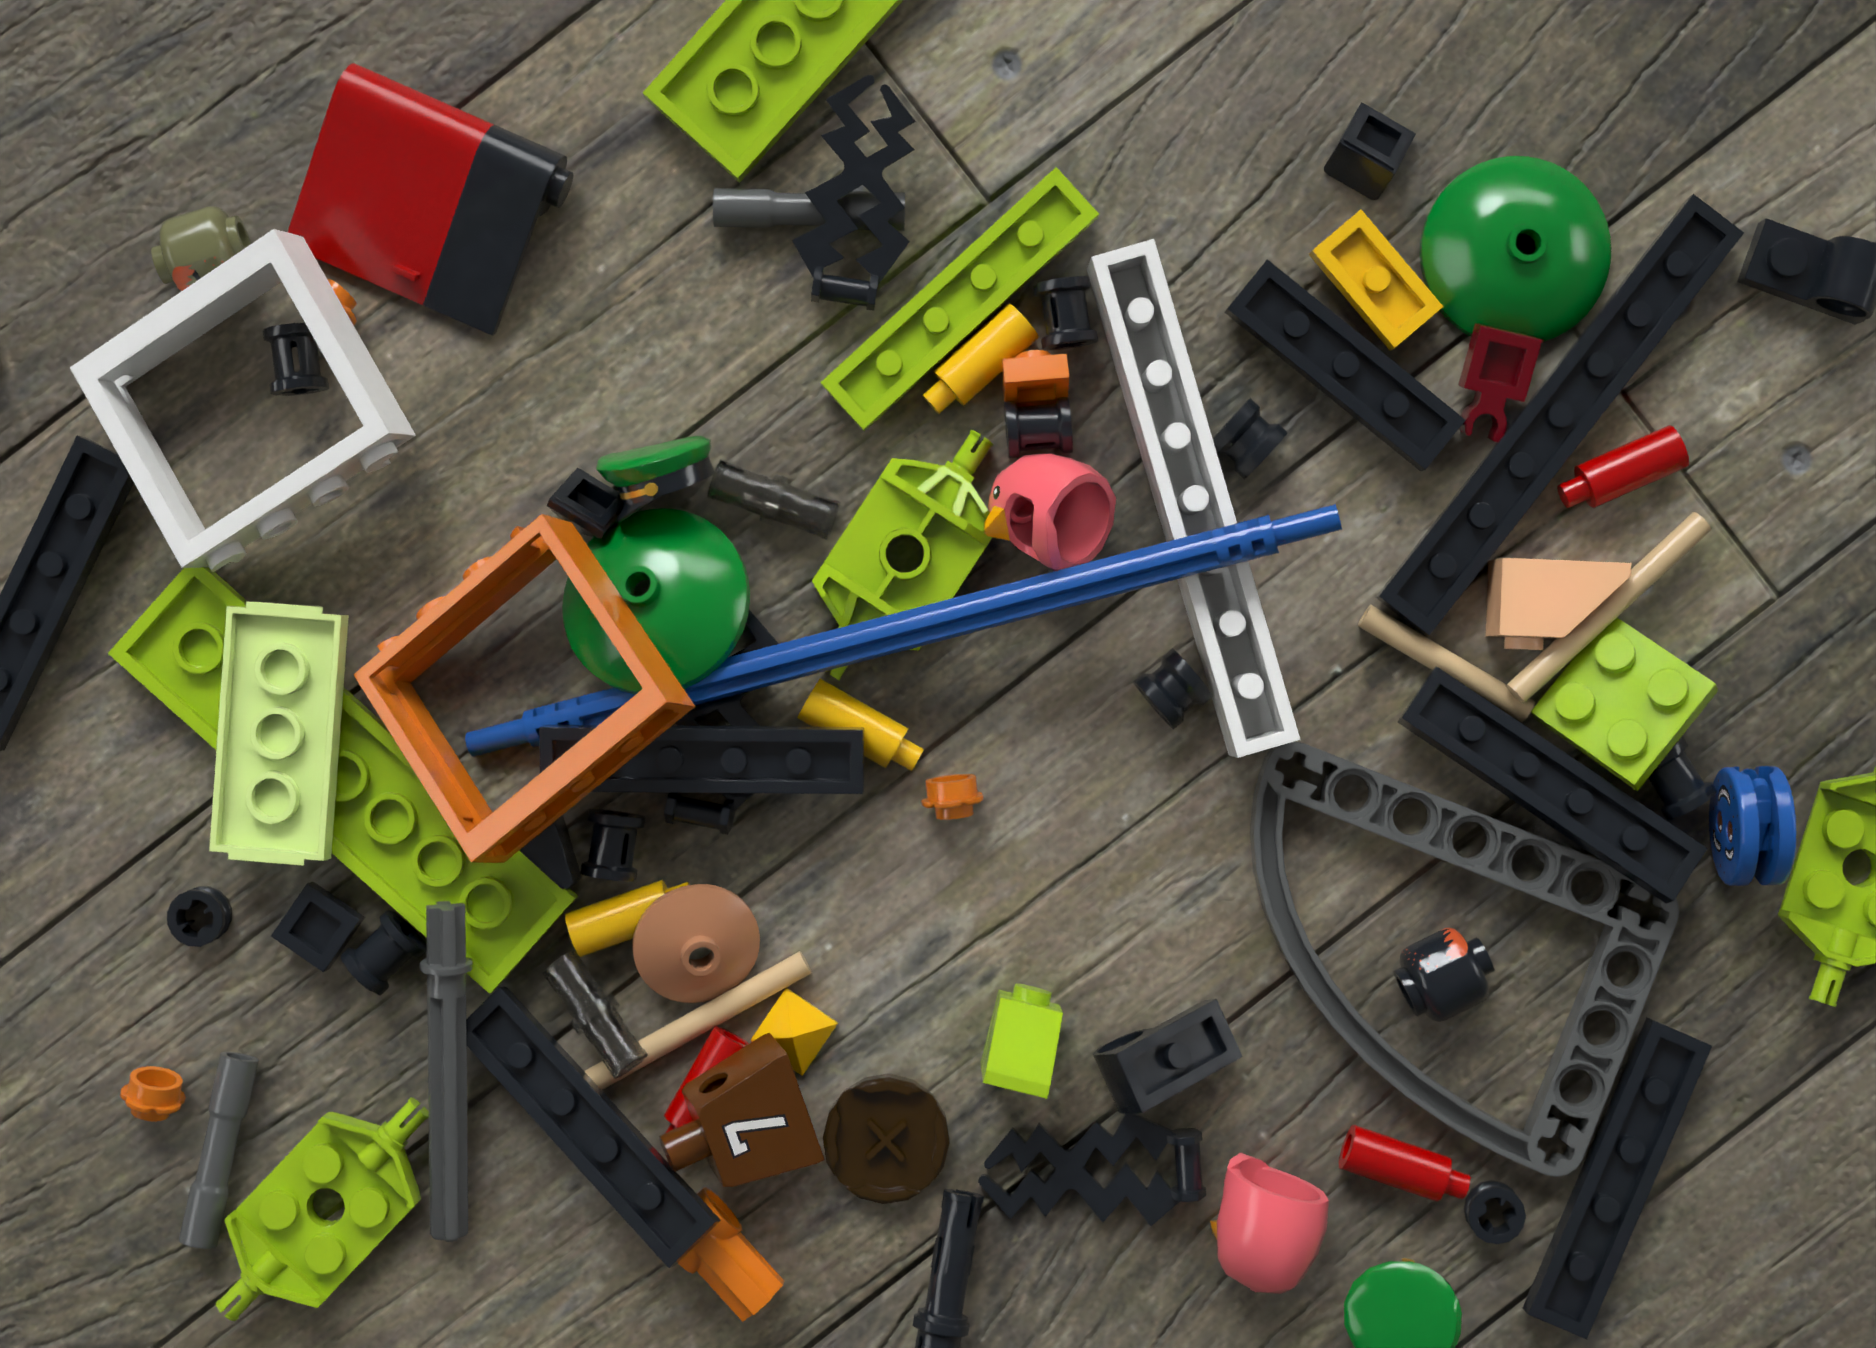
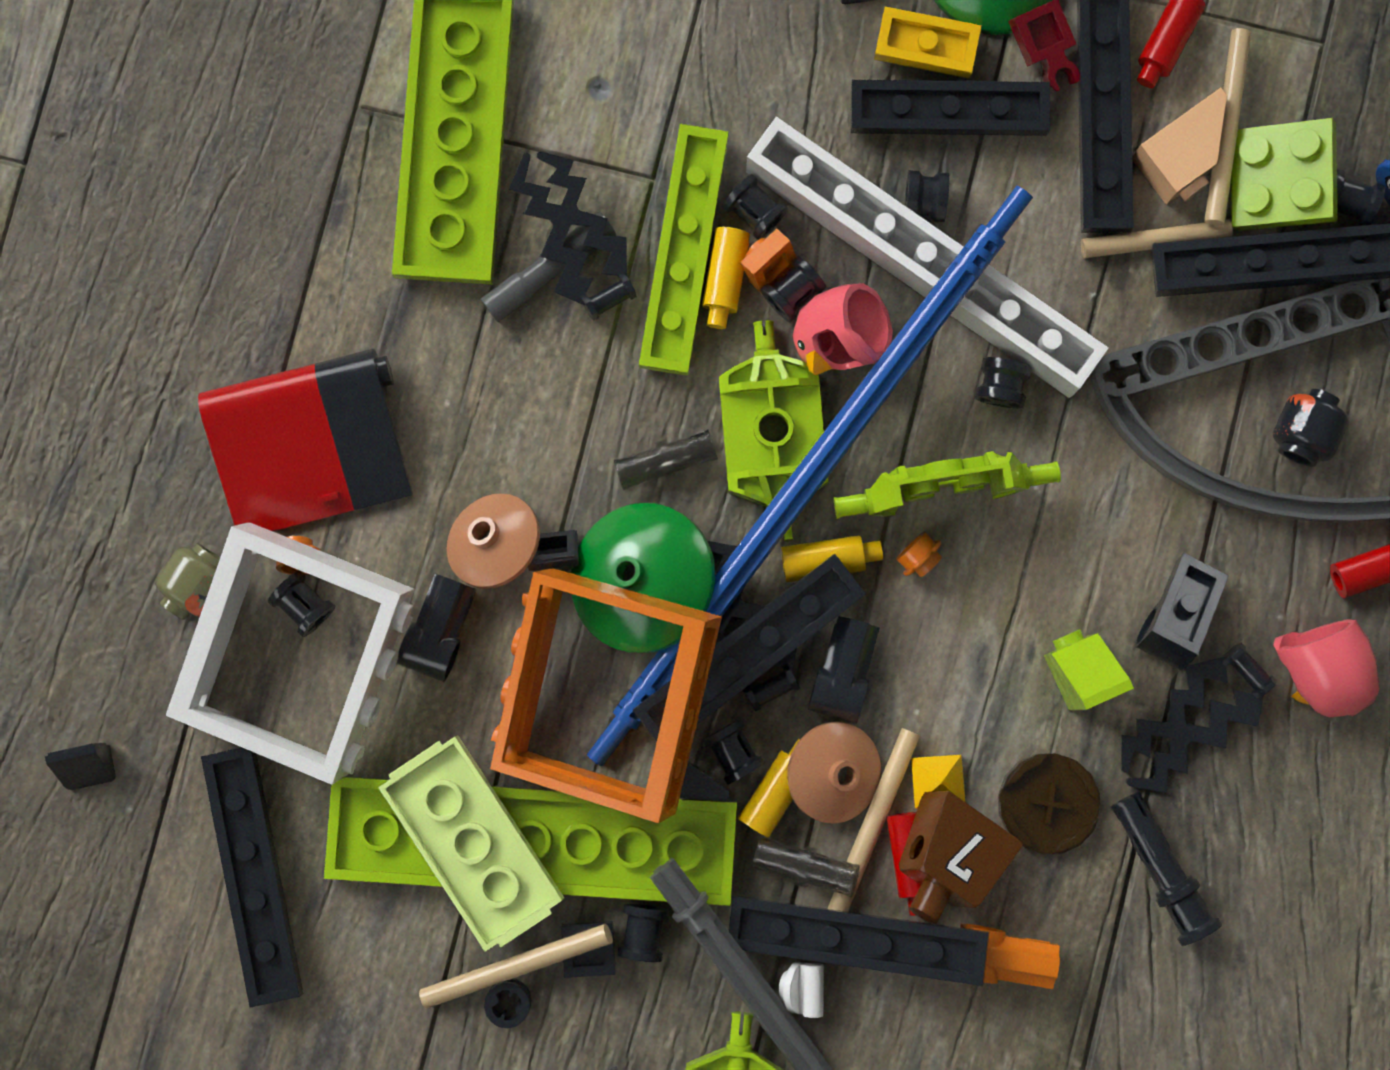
camera: 30 degrees left, 5 degrees down
(232, 888) = (516, 966): none -> tan bar
(399, 499) = (433, 640): none -> black piece
(498, 1130) = (803, 989): none -> white plate
(539, 466) = (506, 549): none -> nougat dish
(656, 470) = (580, 496): green piece -> none
(776, 858) = (842, 680): none -> black piece
(1059, 752) = (966, 475): none -> lime plate

